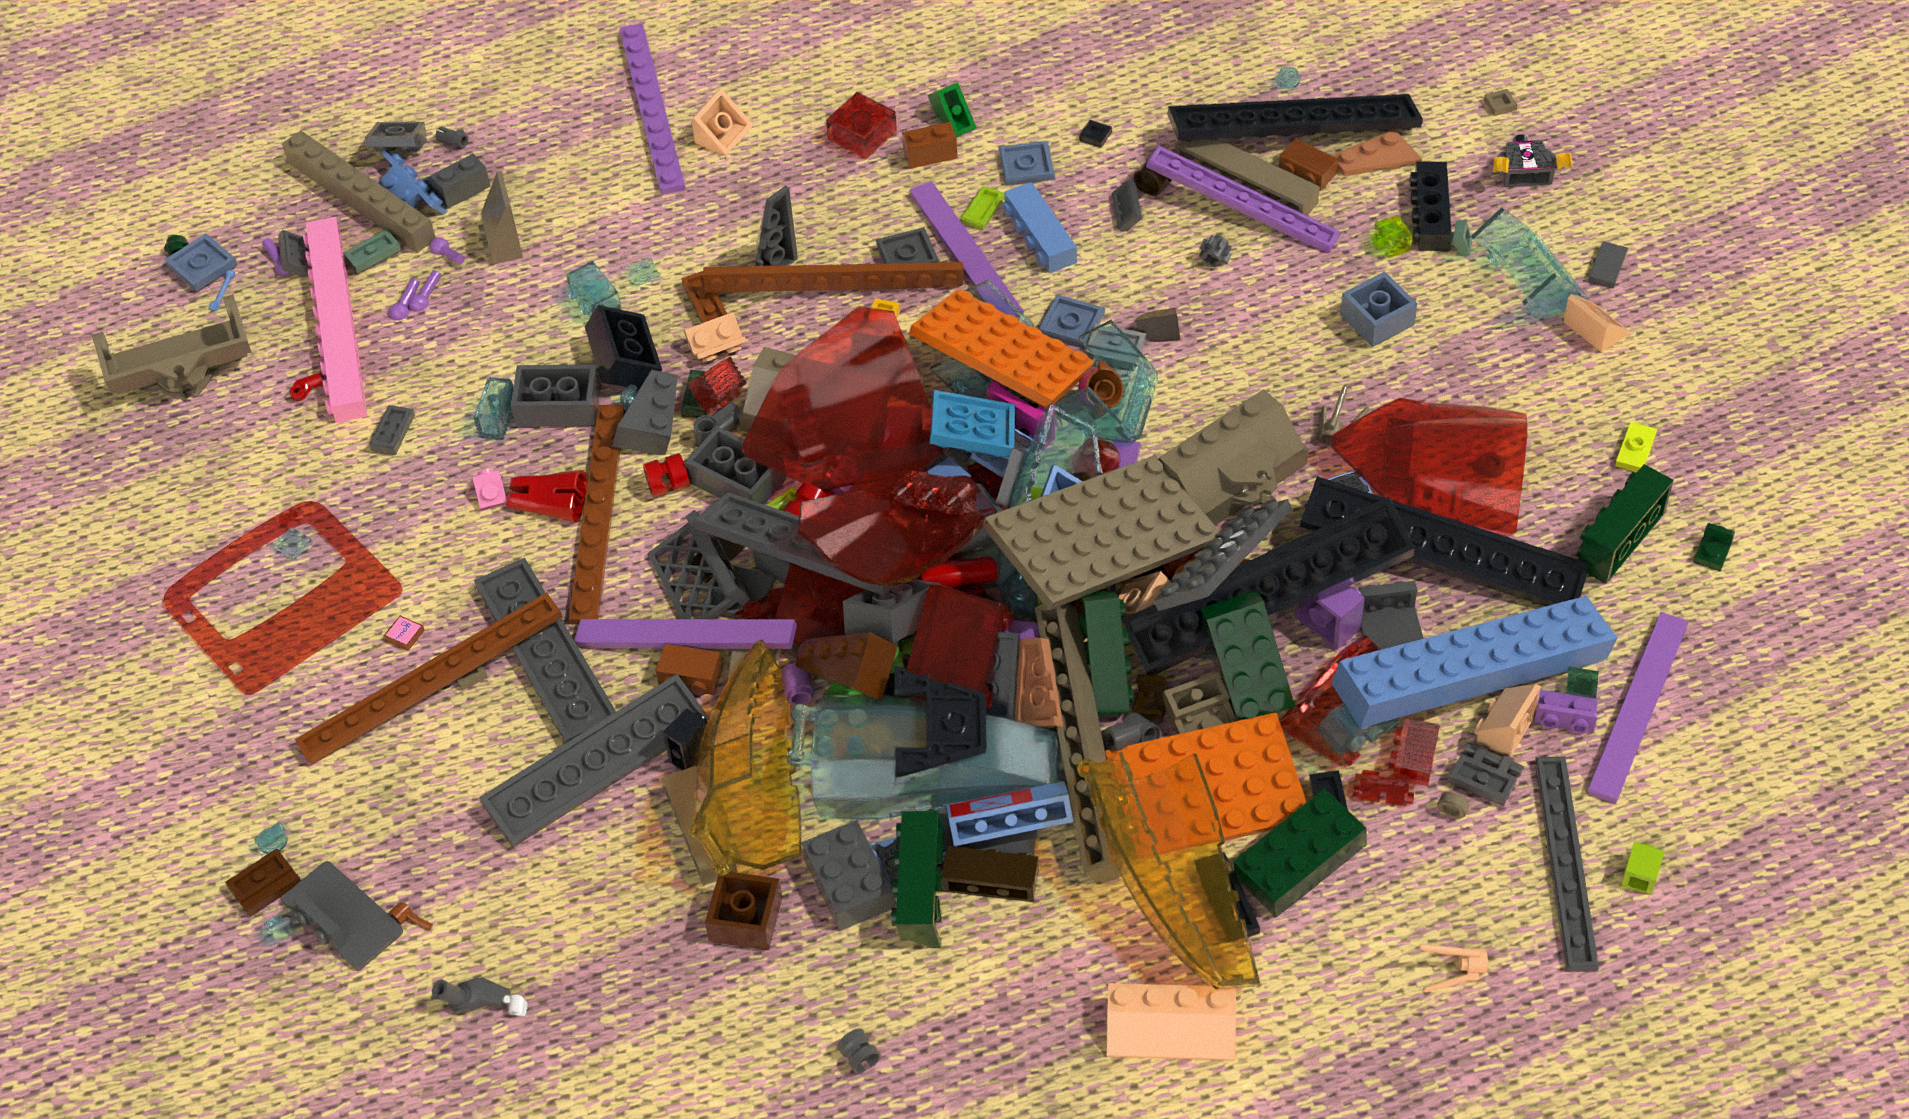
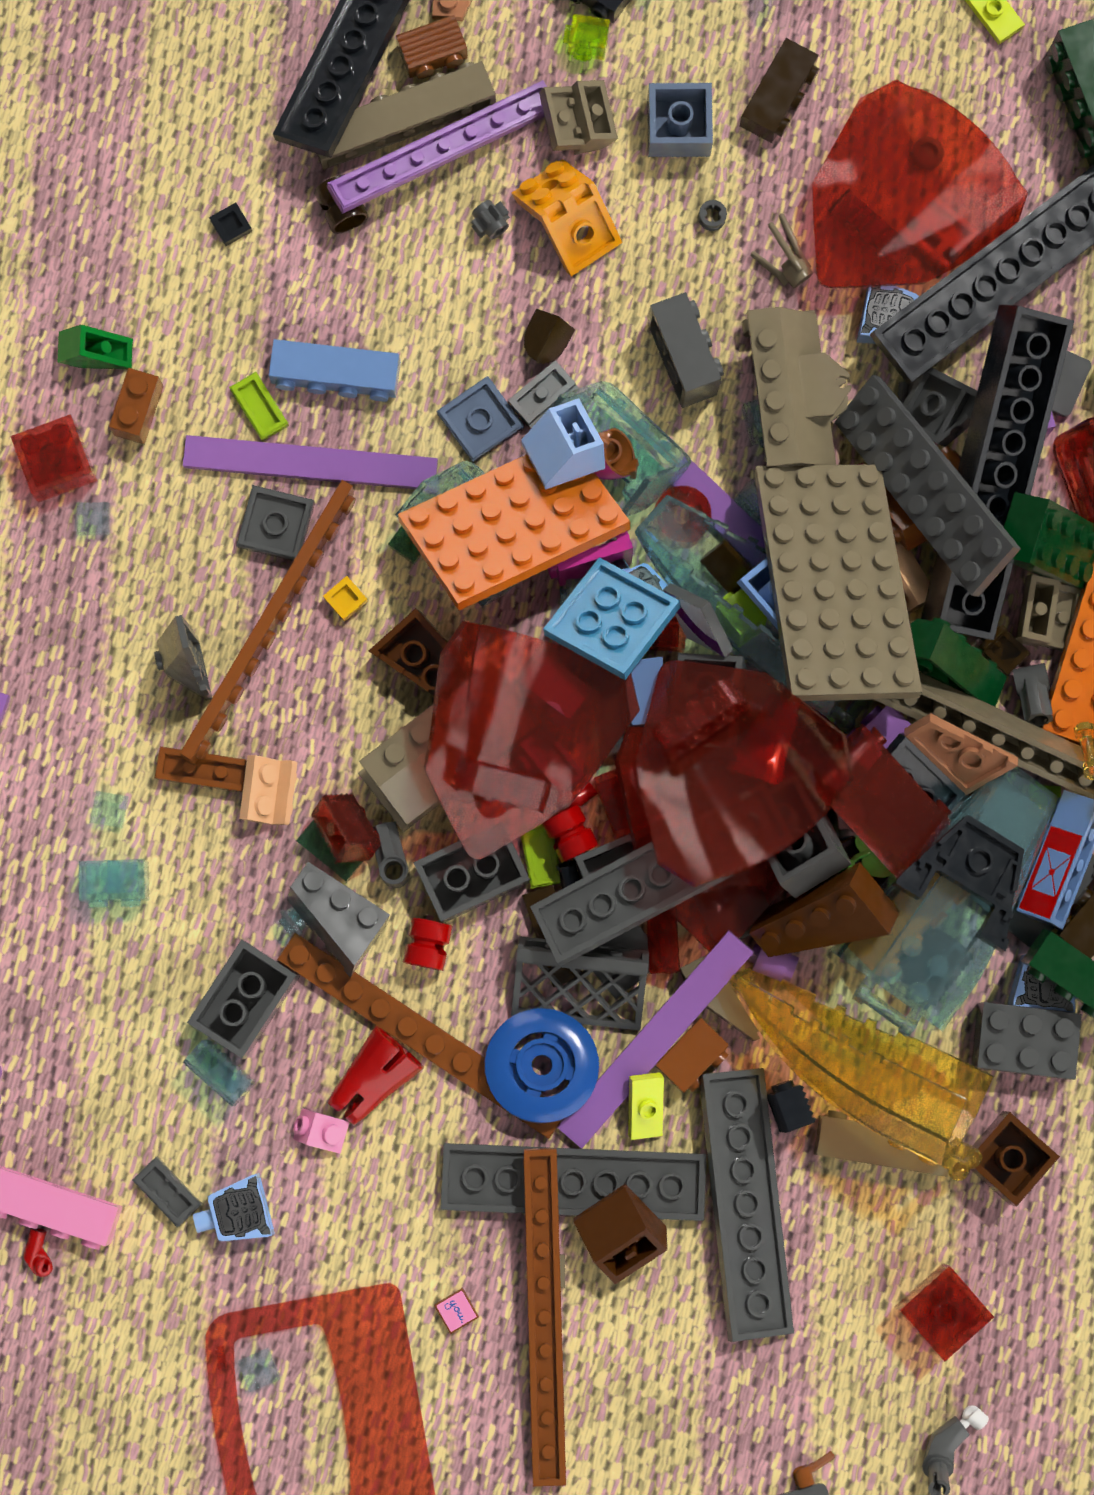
camera: 65 degrees left, 30 degrees up
(402, 471) = (237, 1212): none -> torso
(521, 685) = (621, 1233): none -> reddish brown slope
(589, 929) = (944, 1312): none -> clear red brick
(621, 346) = (229, 896): black brick -> none
(630, 658) = (645, 1106): none -> neon yellow plate
(634, 601) = (511, 1071): none -> blue piece
(838, 168) = (93, 518): none -> clear light blue tile
(1026, 163) = (224, 321): sand blue tile -> none
(1081, 345) = (564, 445): none -> light blue slope
(1126, 205) = (363, 263): dark grey plate -> none
(1212, 389) = (685, 349): none -> dark grey brick
(1254, 275) = (563, 204): none -> light orange bracket
(1329, 257) = (578, 116): none -> dark tan brick
(1336, 371) = (712, 204): none -> dark grey bush
(1454, 354) = (780, 91): none -> dark brown brick

